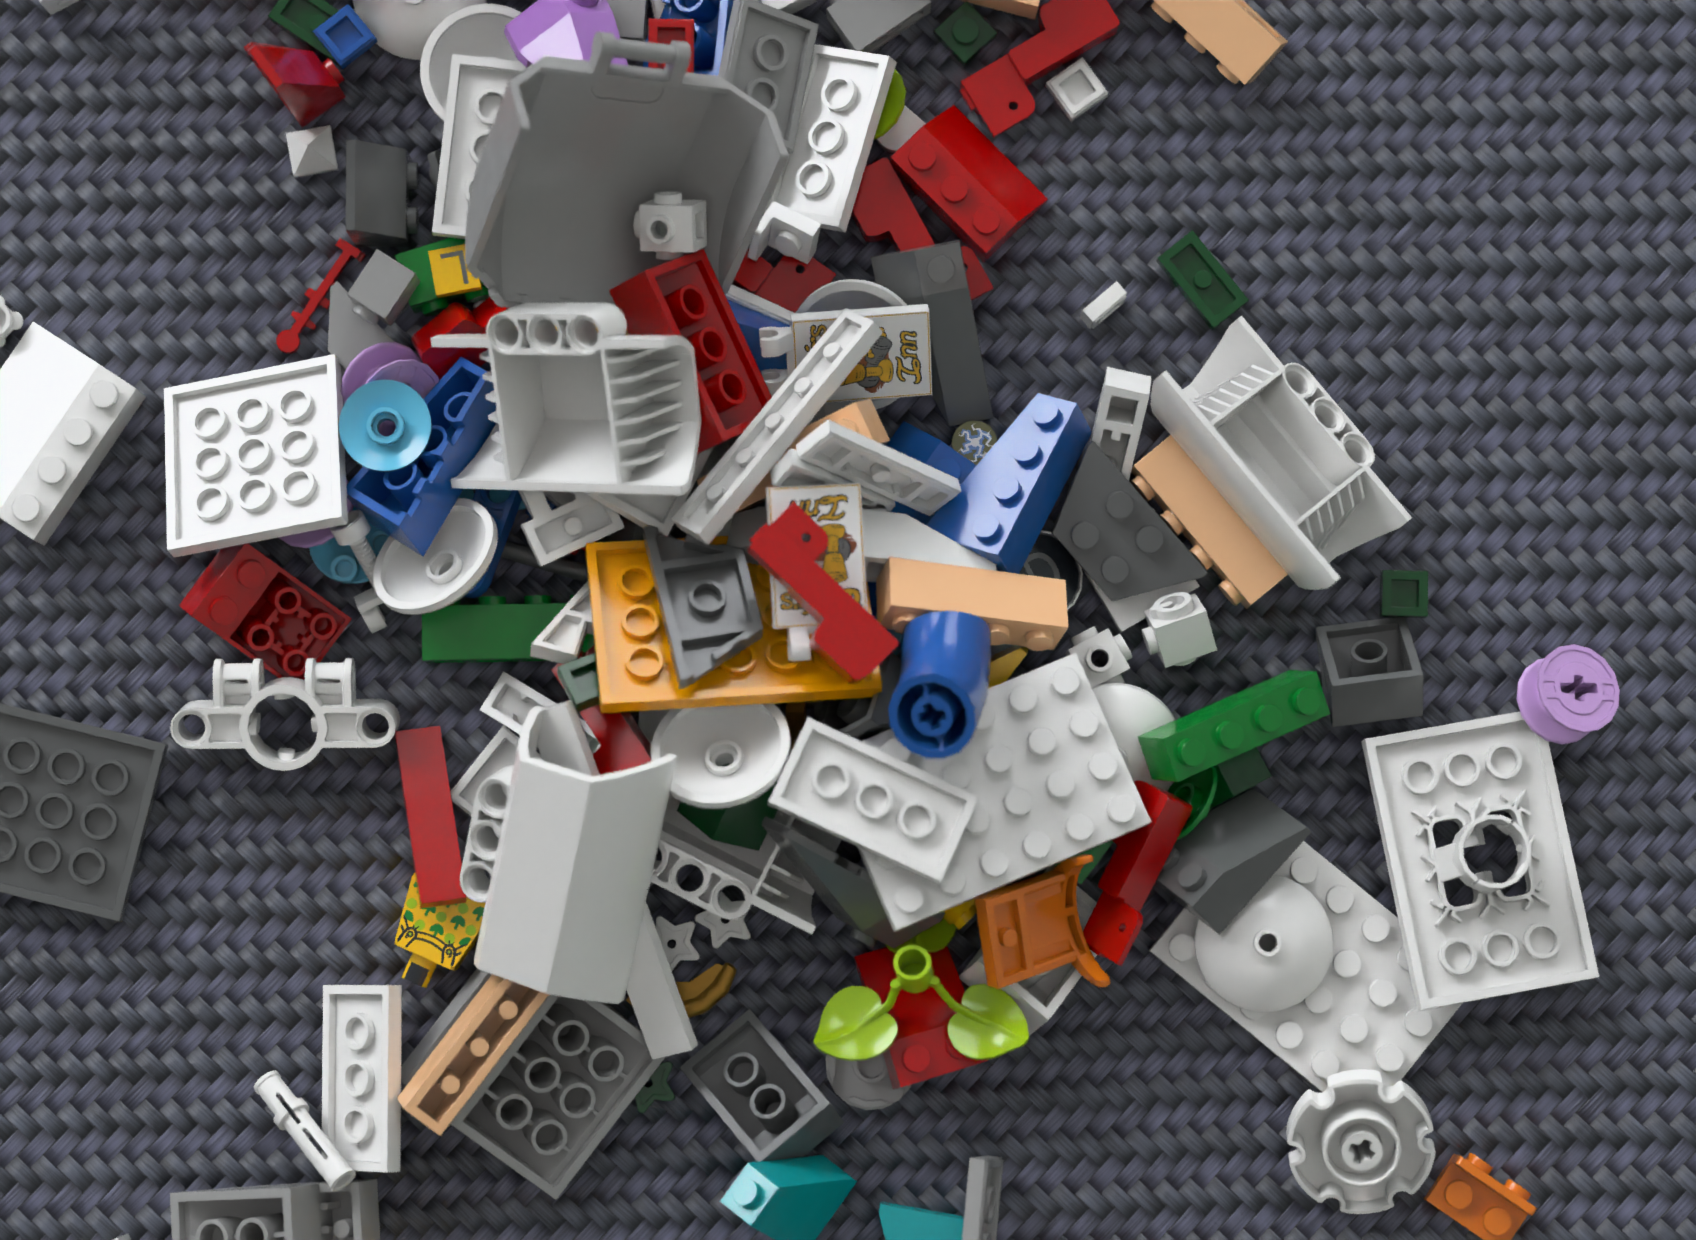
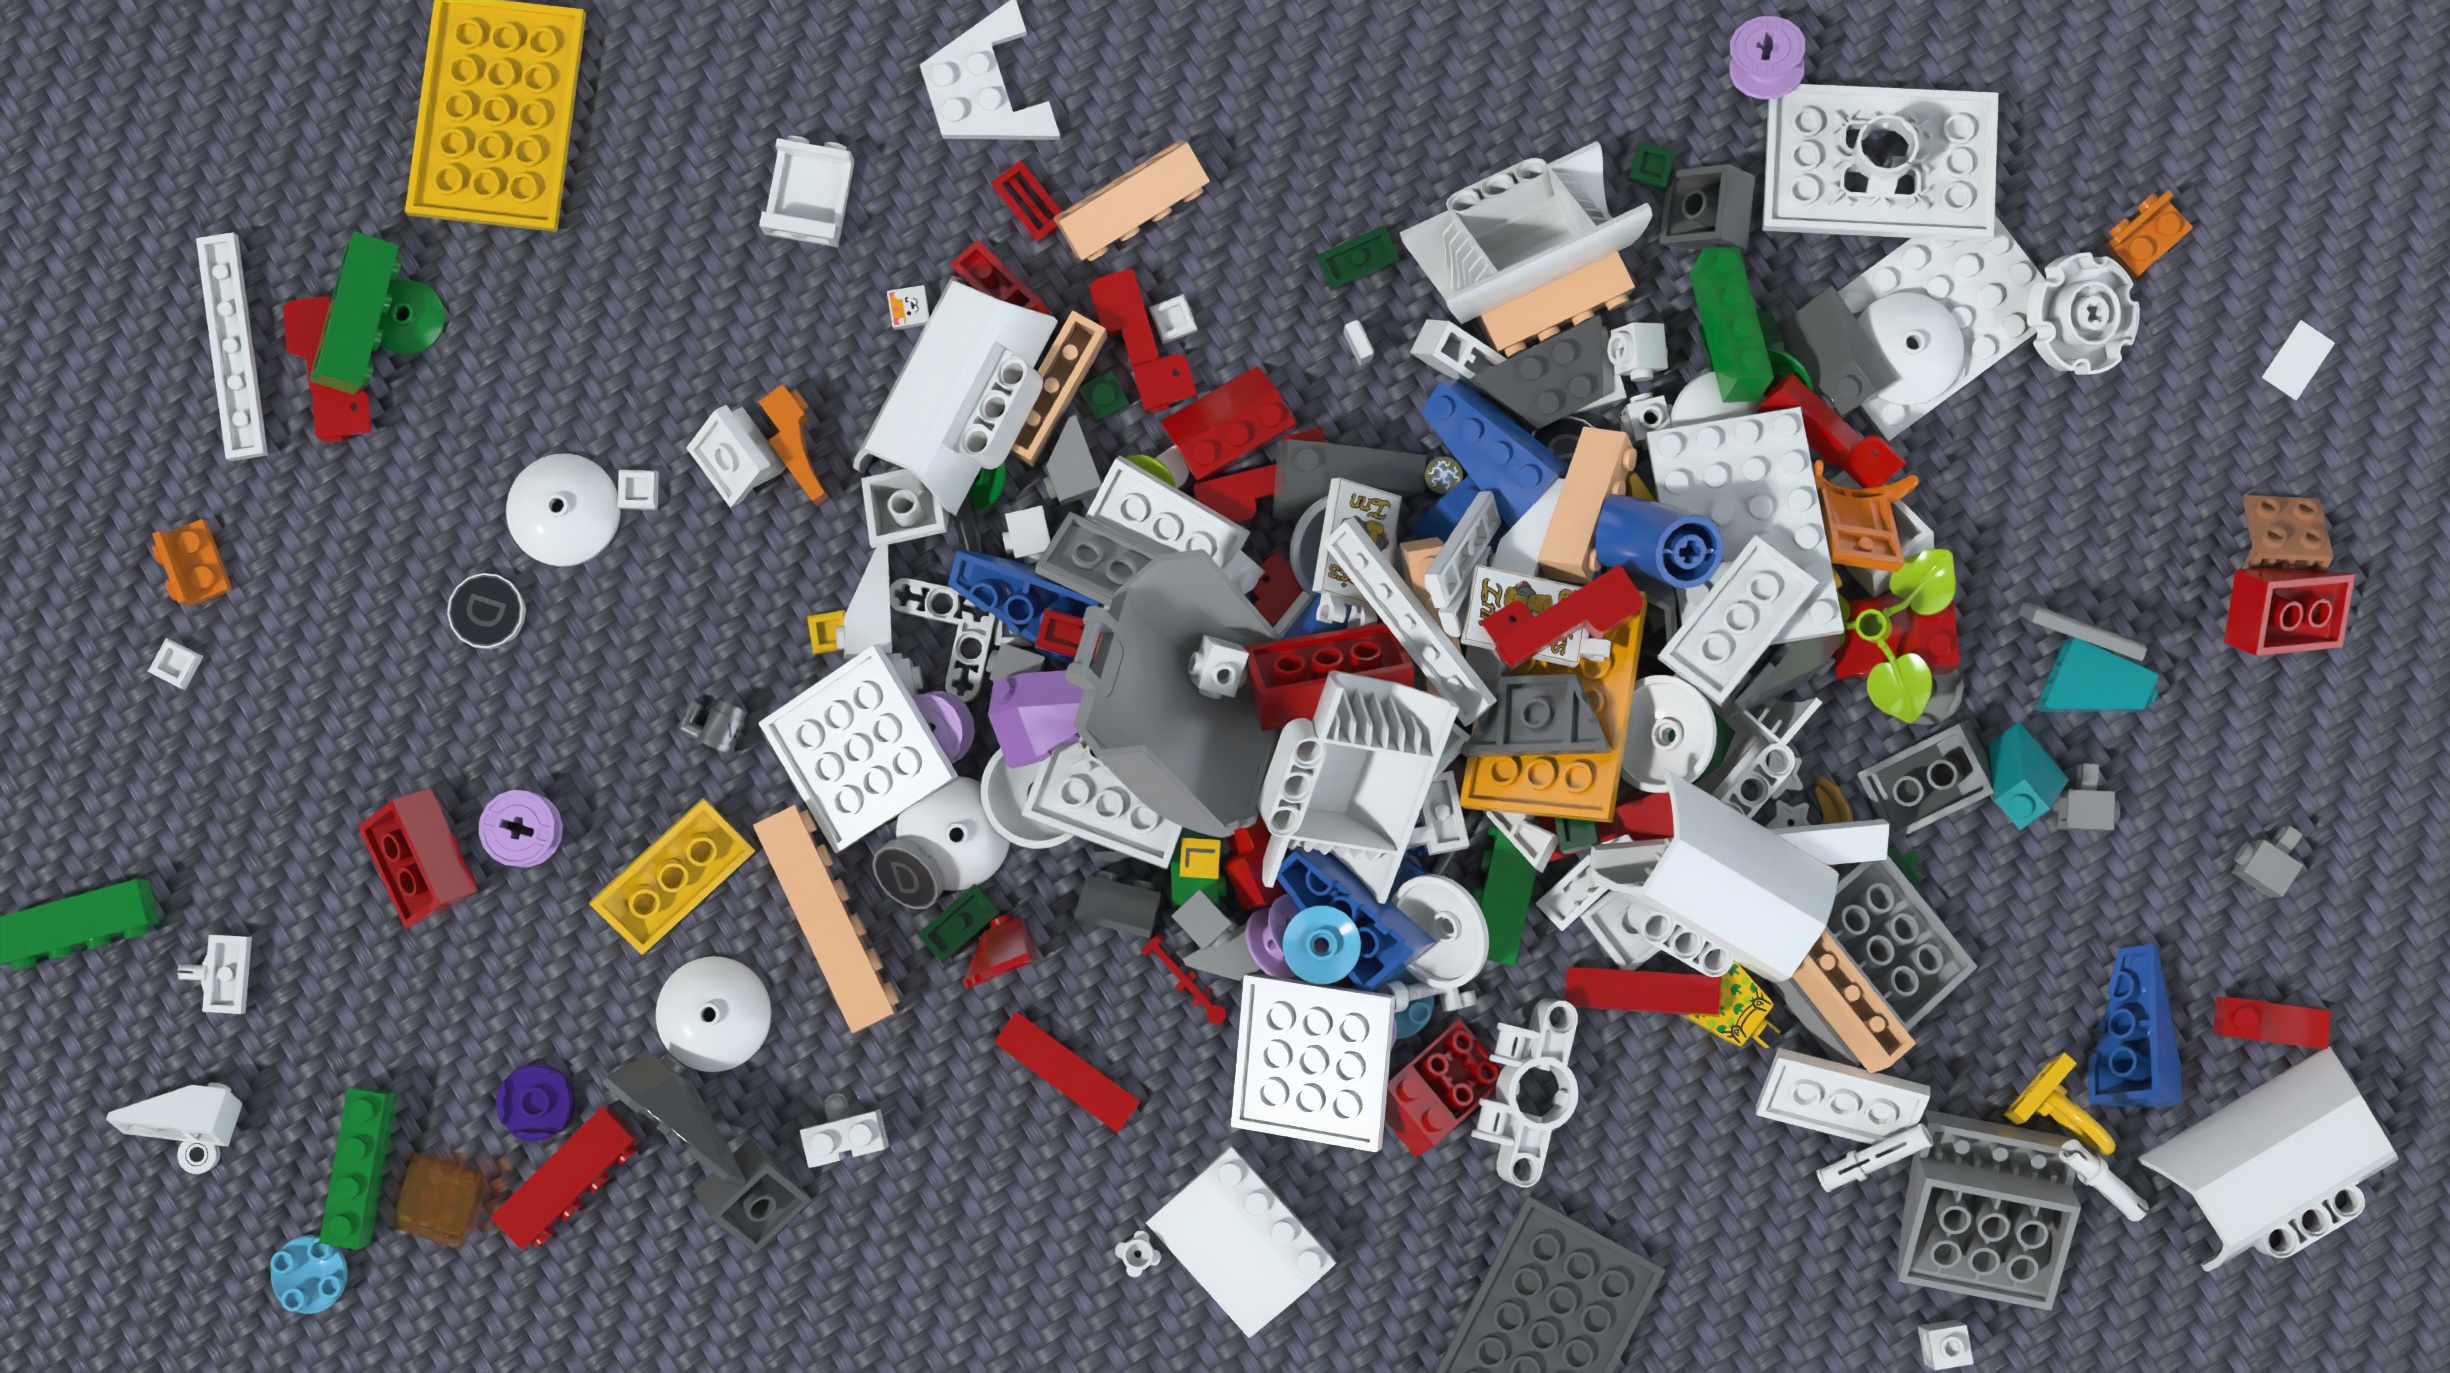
camera: 75 degrees left, 0 degrees up
(181, 190) = (1067, 1071): none -> red tile
(312, 151) = (1062, 955): white slope -> none
(345, 36) = (977, 902): blue tile -> none

